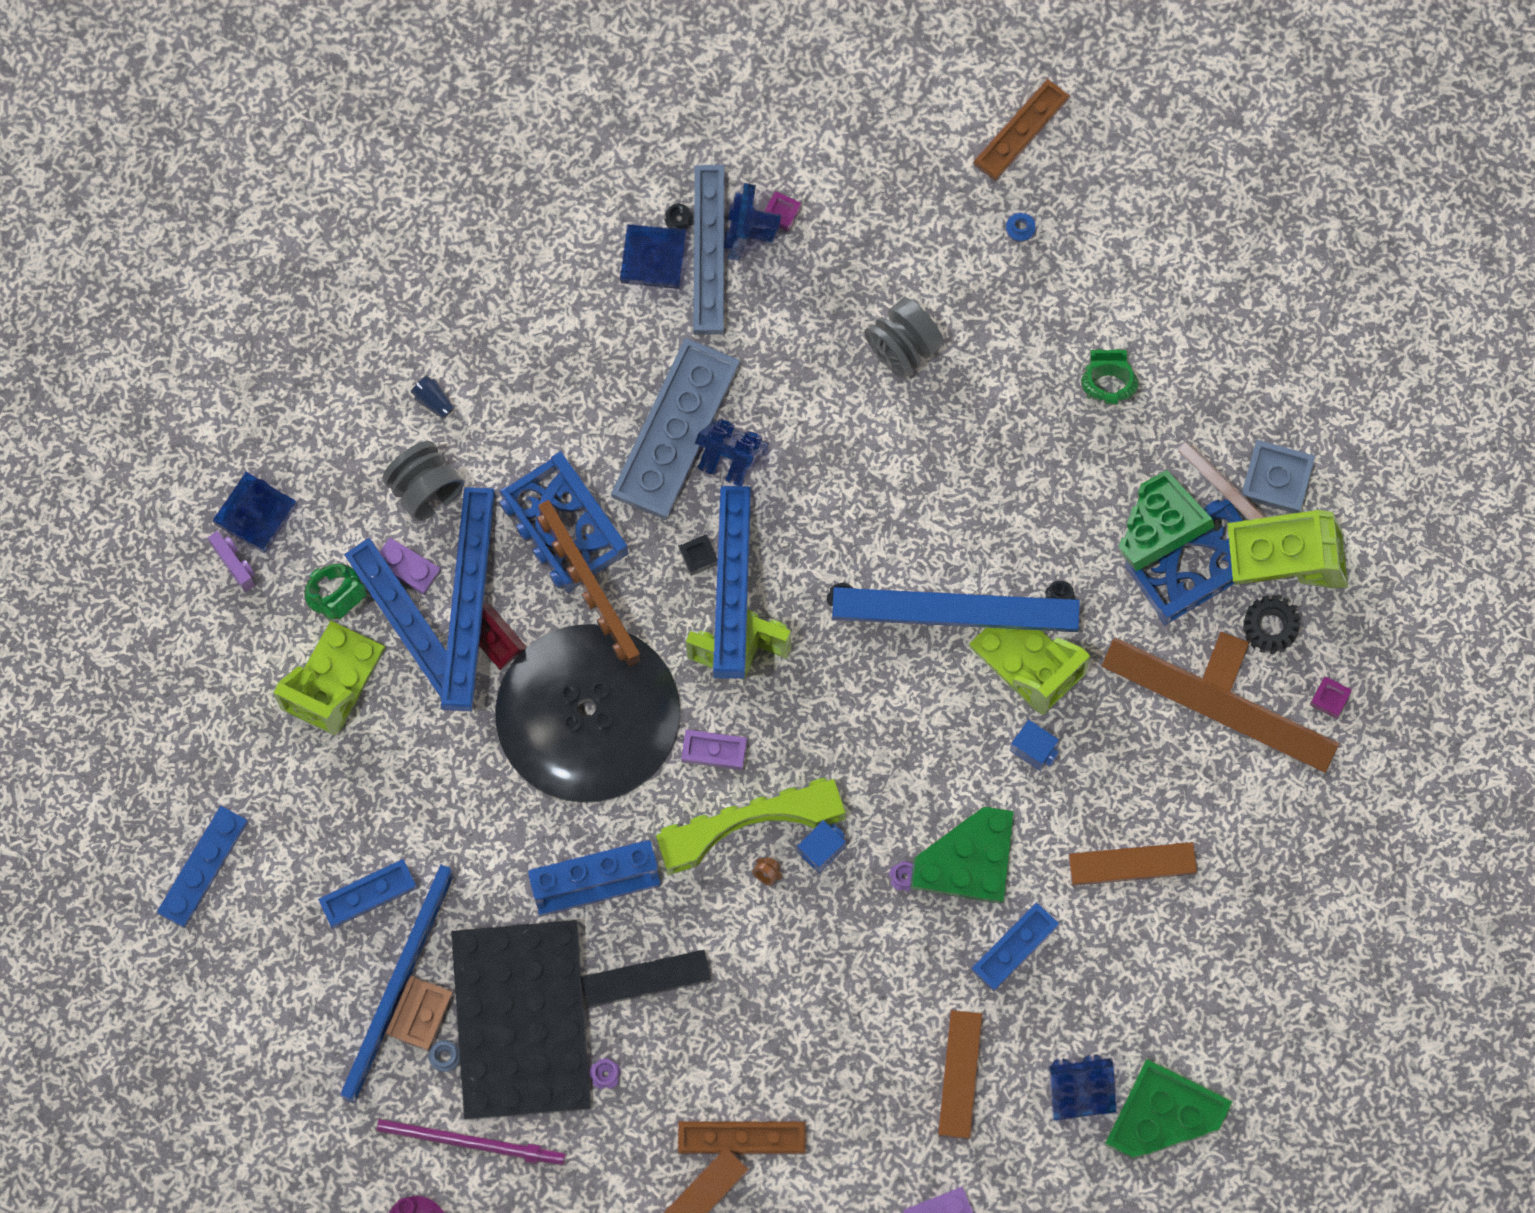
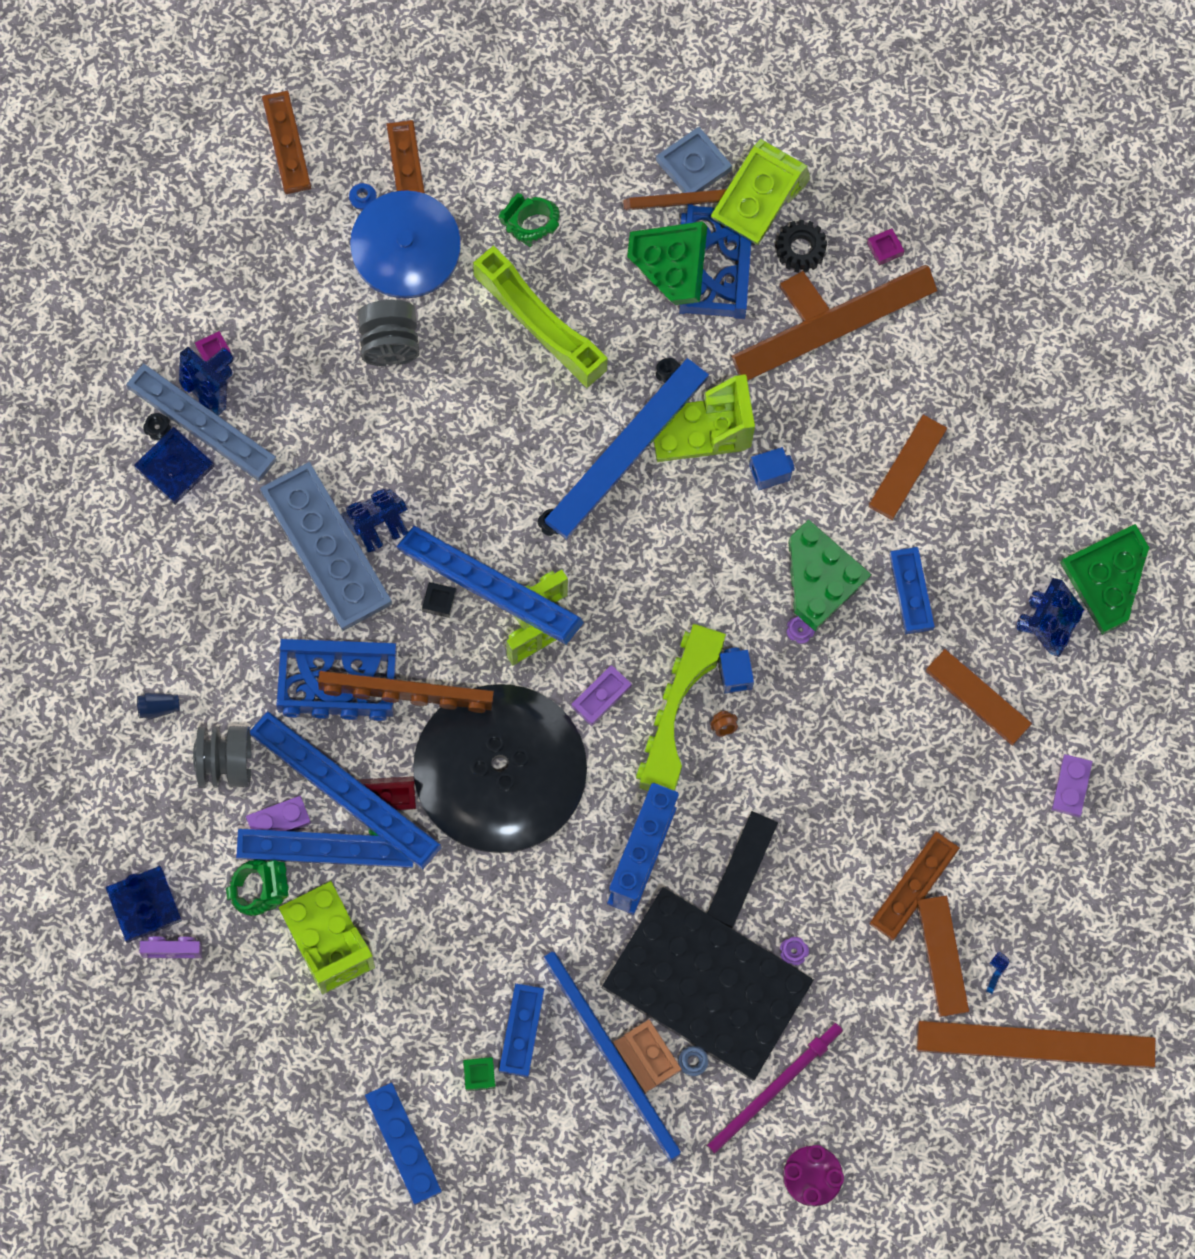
camera: 60 degrees left, 0 degrees up
(304, 885) = (479, 1074): none -> green plate
(1003, 293) = (405, 244): none -> blue dish
(1021, 451) = (511, 290): none -> lime arch
(1074, 247) = (405, 156): none -> dark orange tile

